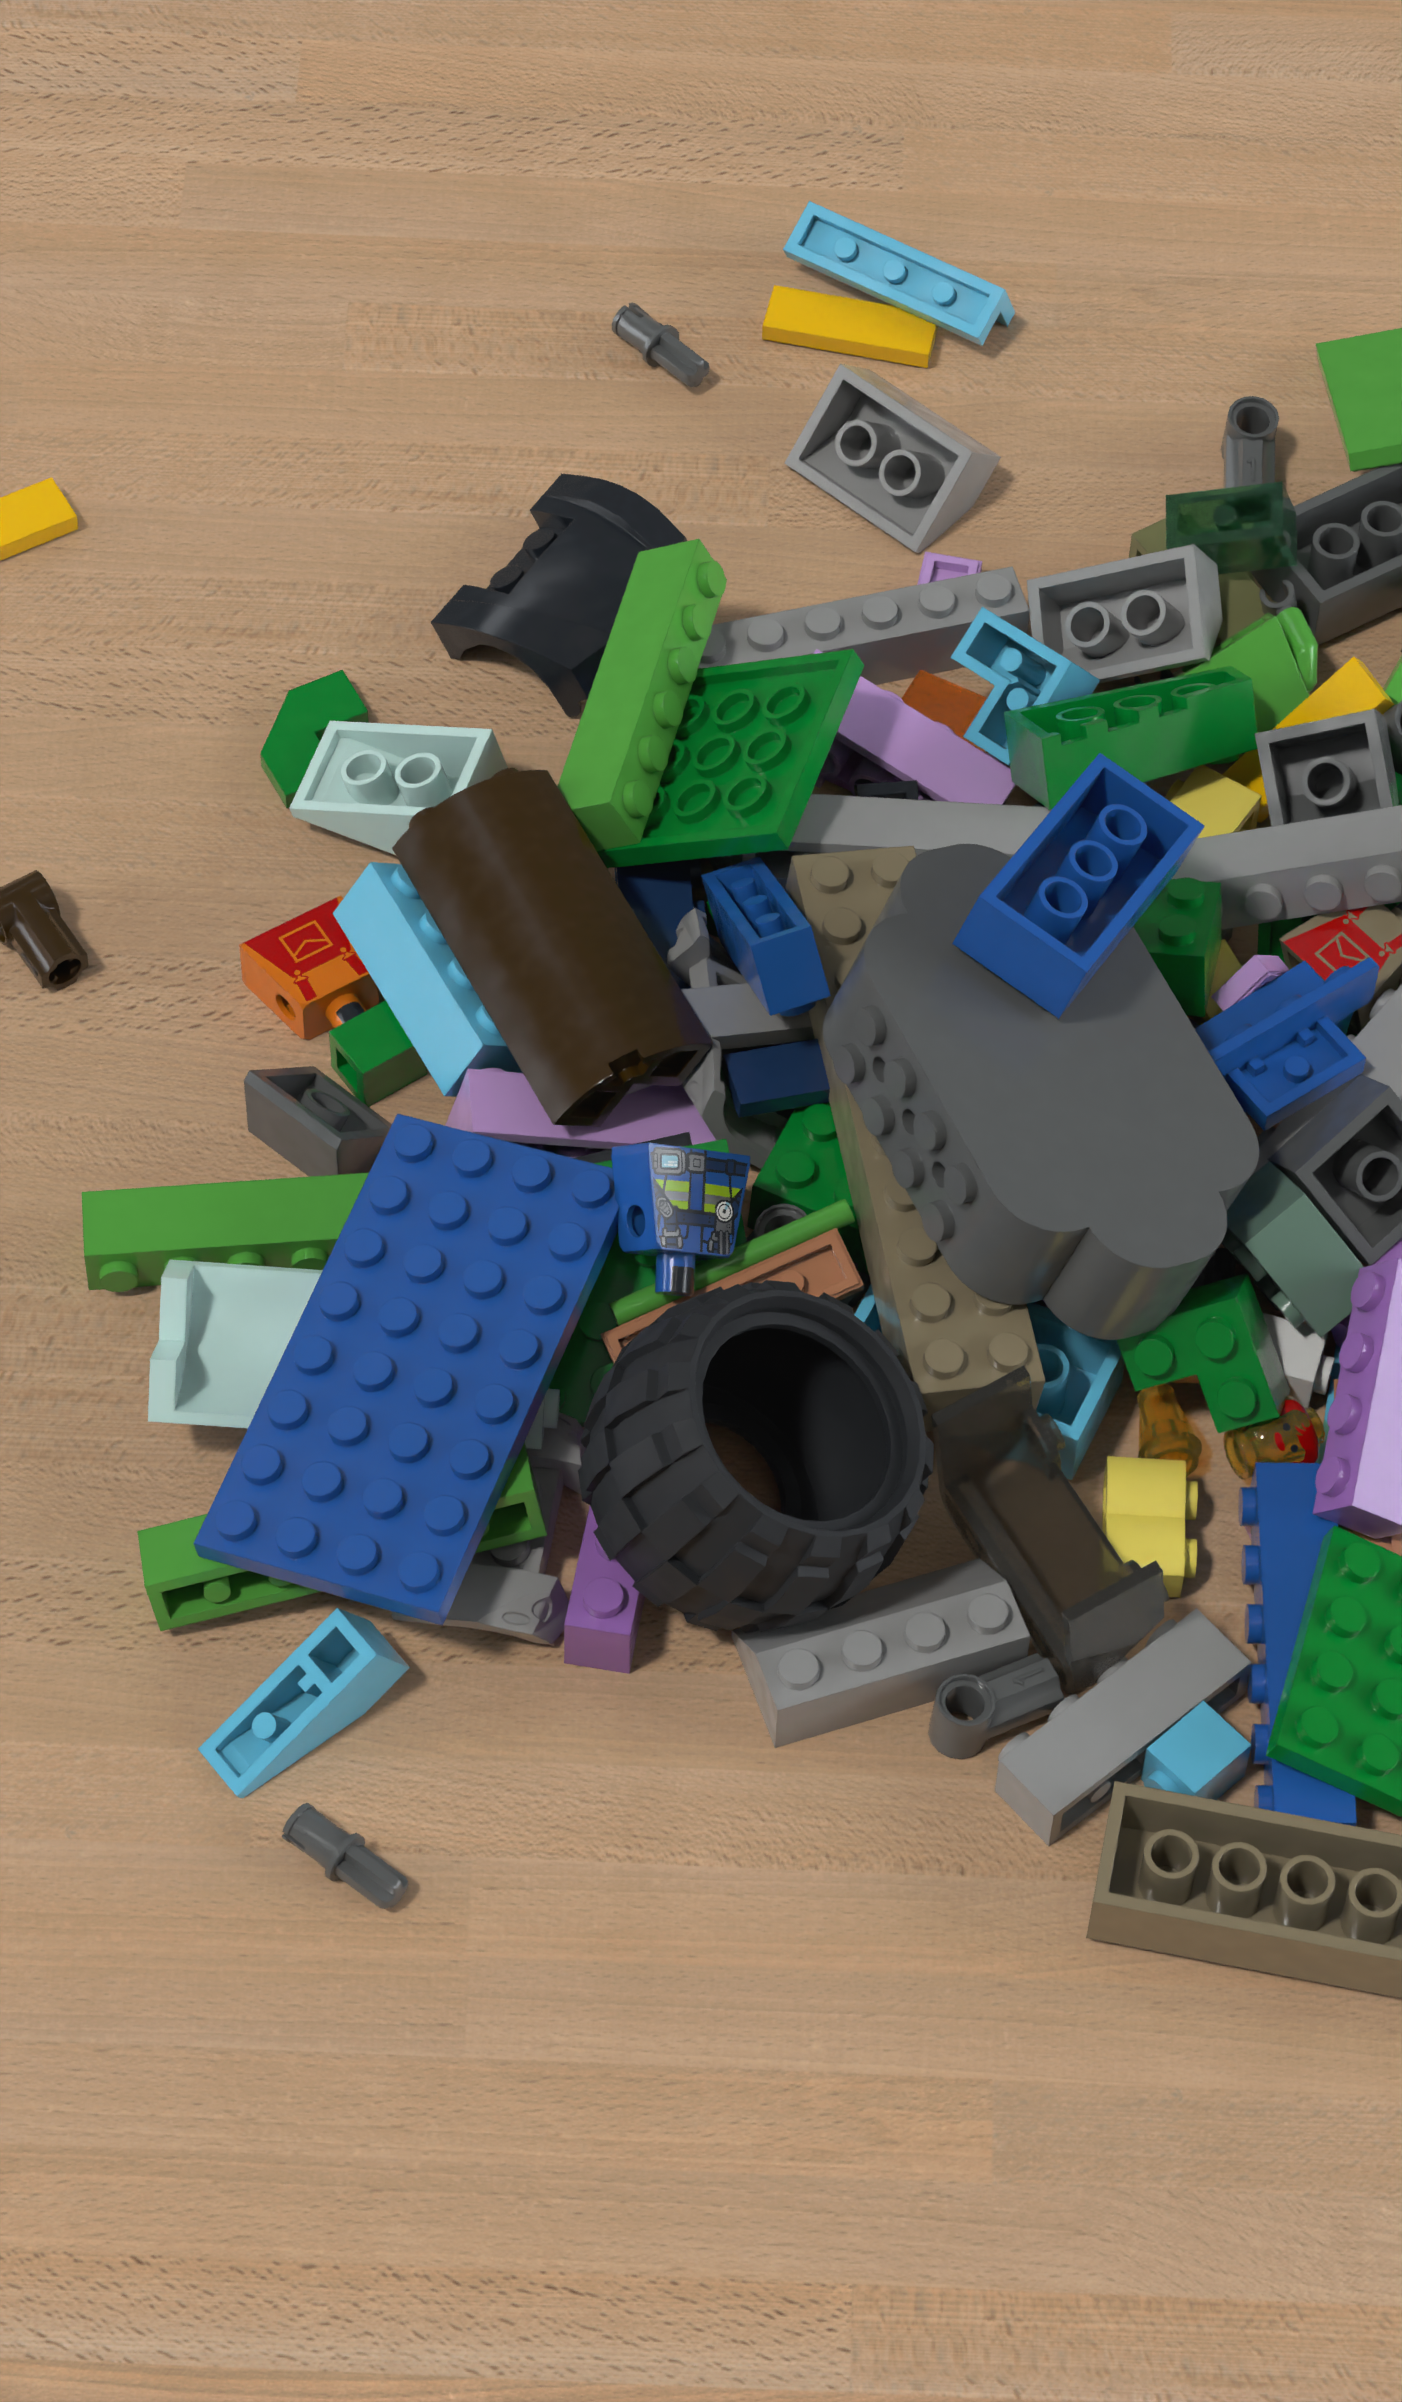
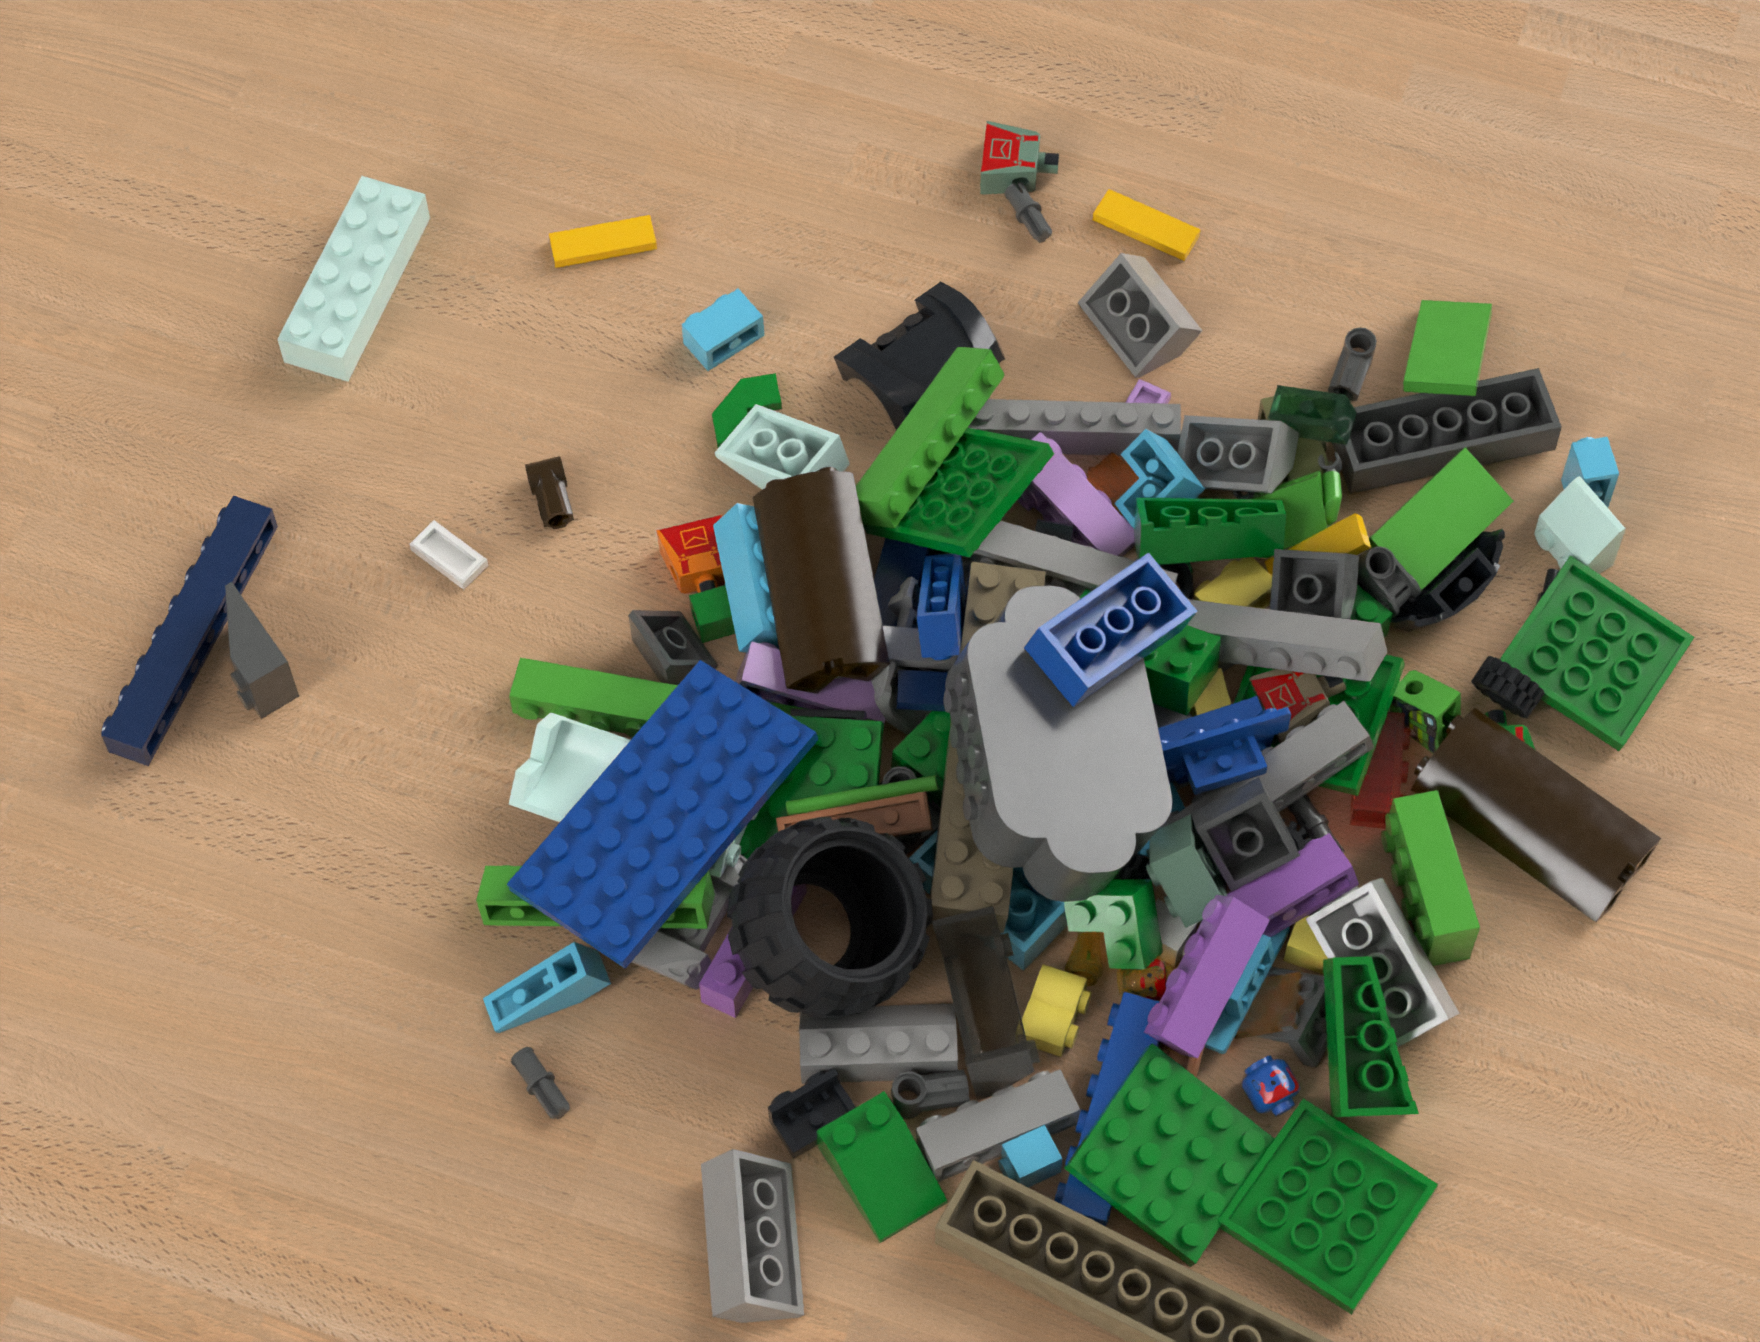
camera: 20 degrees right, 5 degrees up
(233, 621) = (722, 329): none -> medium azure brick
(607, 267) = (1013, 157): none -> torso
(678, 1207) = (835, 758): torso -> none
(786, 2009) = (751, 1238): none -> light grey slope
(815, 1784) = (802, 1112): none -> black bracket
(898, 274) = (1182, 200): medium azure fence -> none
(956, 1839) = (881, 1166): none -> green slope
(1248, 979) = (1222, 698): lavender tile -> none

